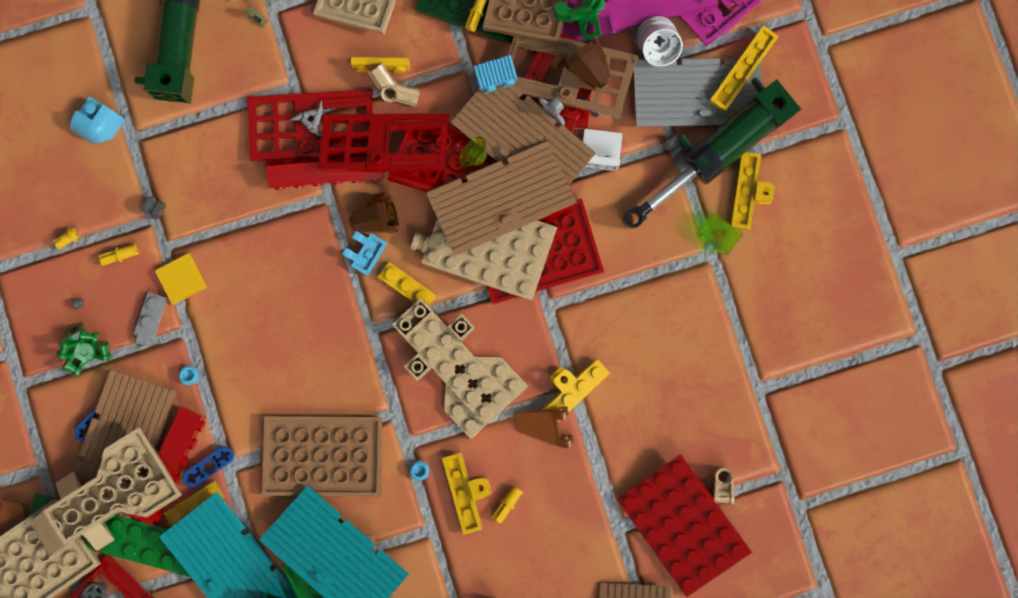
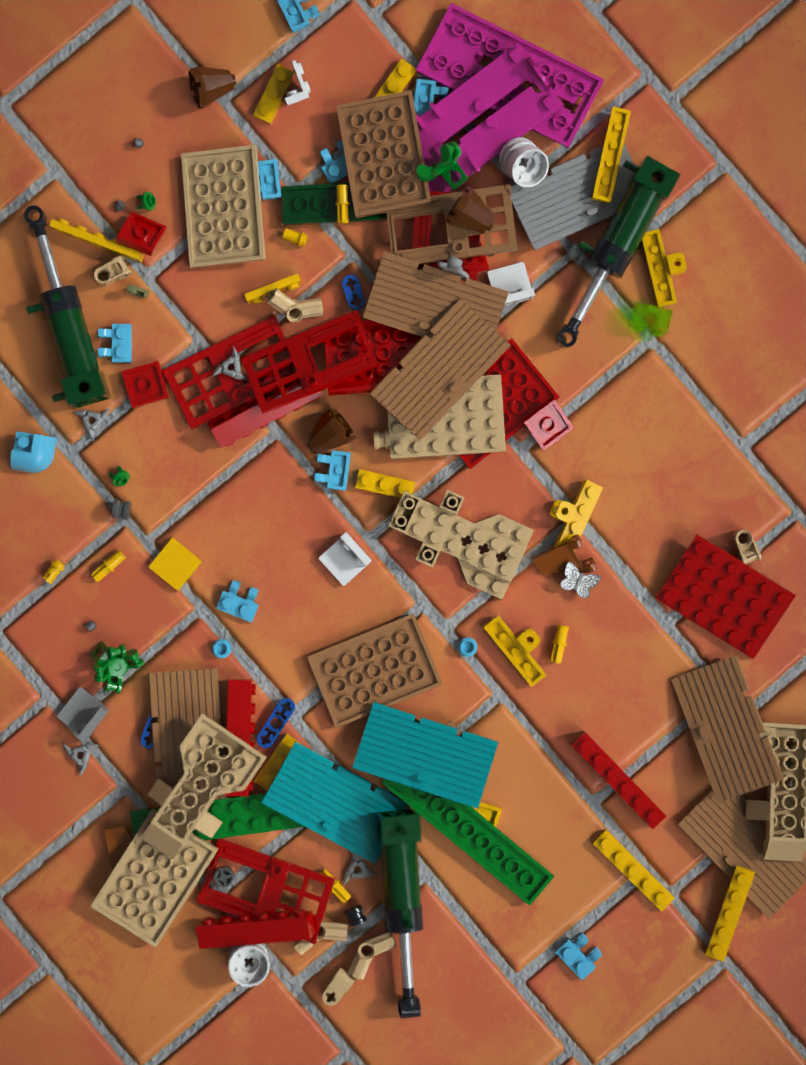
camera: 25 degrees left, 5 degrees up
(8, 420) = (86, 751): none -> light grey piece
(34, 382) = (83, 713): none -> light grey bracket
(150, 318) = (162, 612): light grey hinge -> none
(160, 109) = (90, 428): none -> light grey piece
(165, 178) = (120, 478): none -> green plate
(221, 57) = (121, 343): none -> medium azure plate
(221, 341) = (236, 605): none -> medium azure plate
(226, 103) = (145, 384): none -> red plate
(340, 339) = (345, 559): none -> white bracket
(424, 28) = (295, 237): none -> yellow pin
(457, 98) = (349, 295): none -> blue beam
(474, 152) = (396, 337): clear neon green piece -> none
(495, 74) = (387, 256): medium azure brick -> none
(550, 452) = (578, 581): none -> light grey animal
(582, 291) = (547, 424): none -> plate

